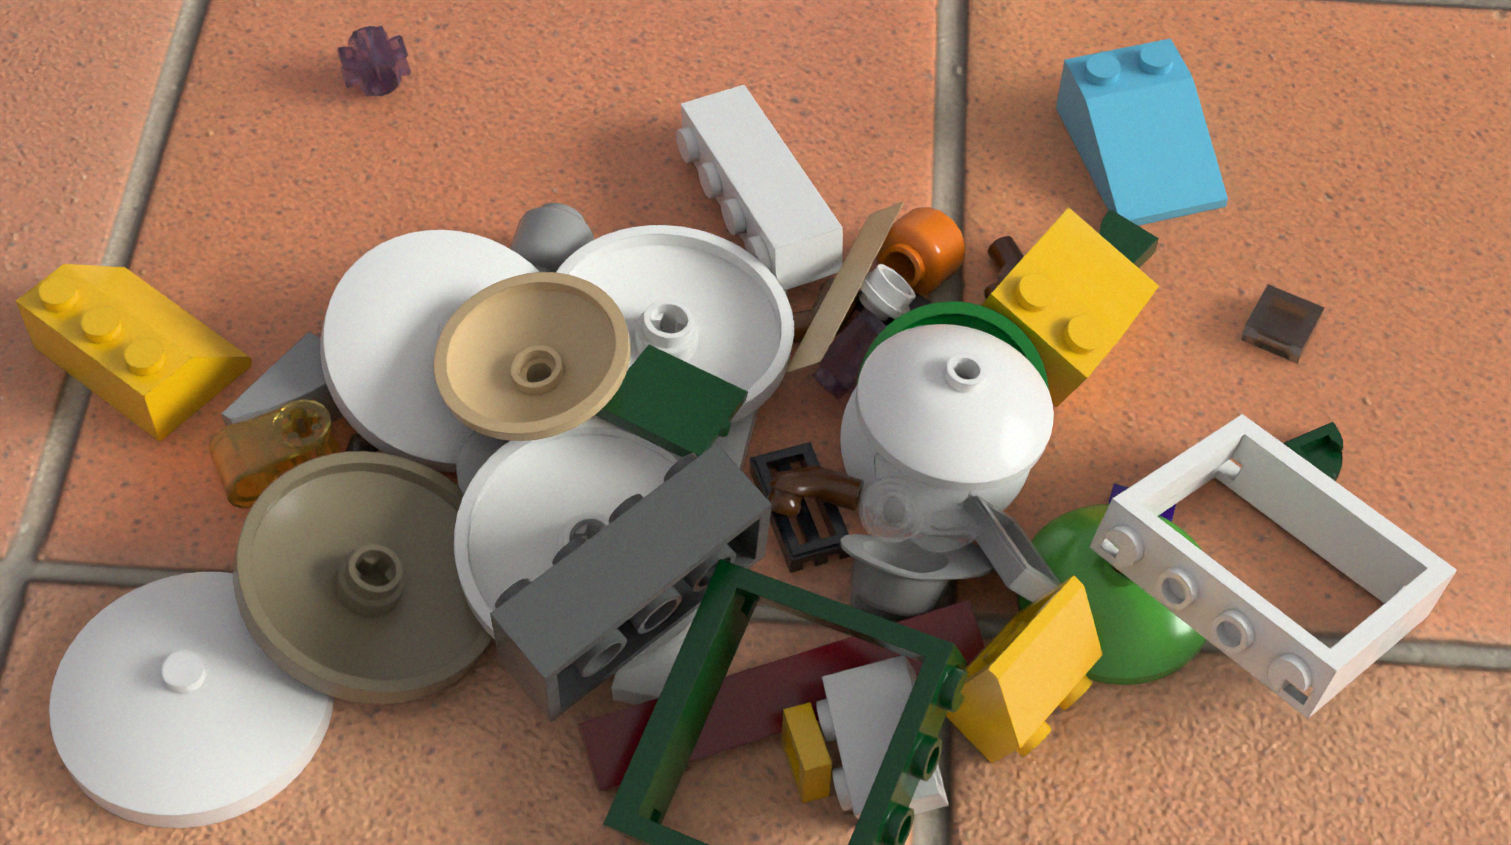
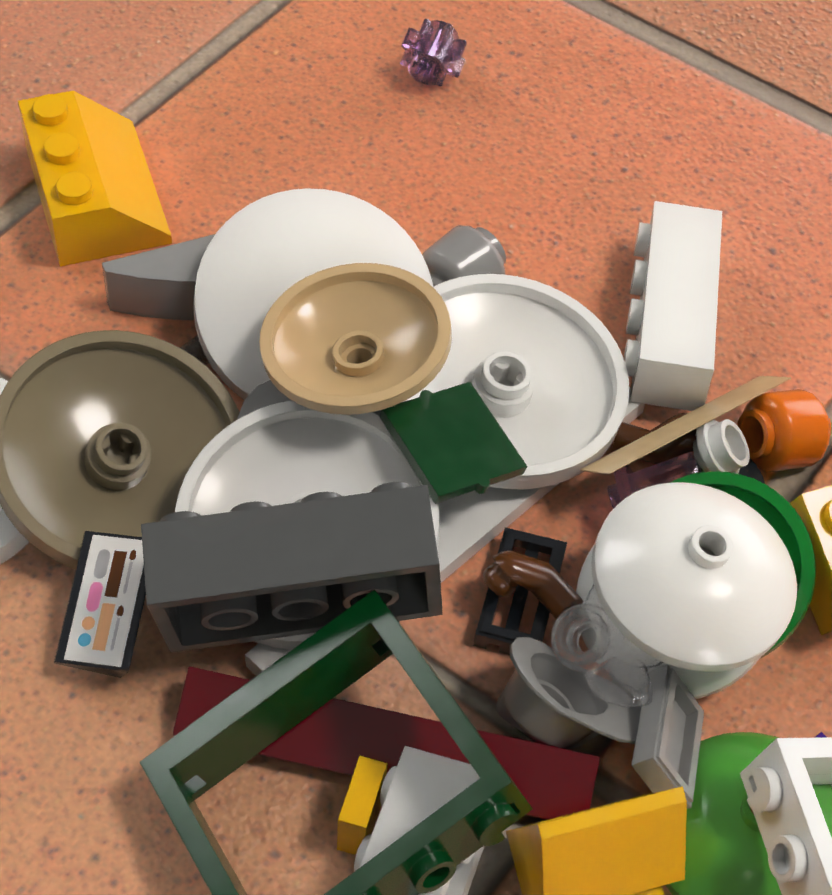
camera: 30 degrees right, 0 degrees up
(264, 448) = (130, 307): clear yellow piece -> none
(464, 711) = (104, 605): none -> slope

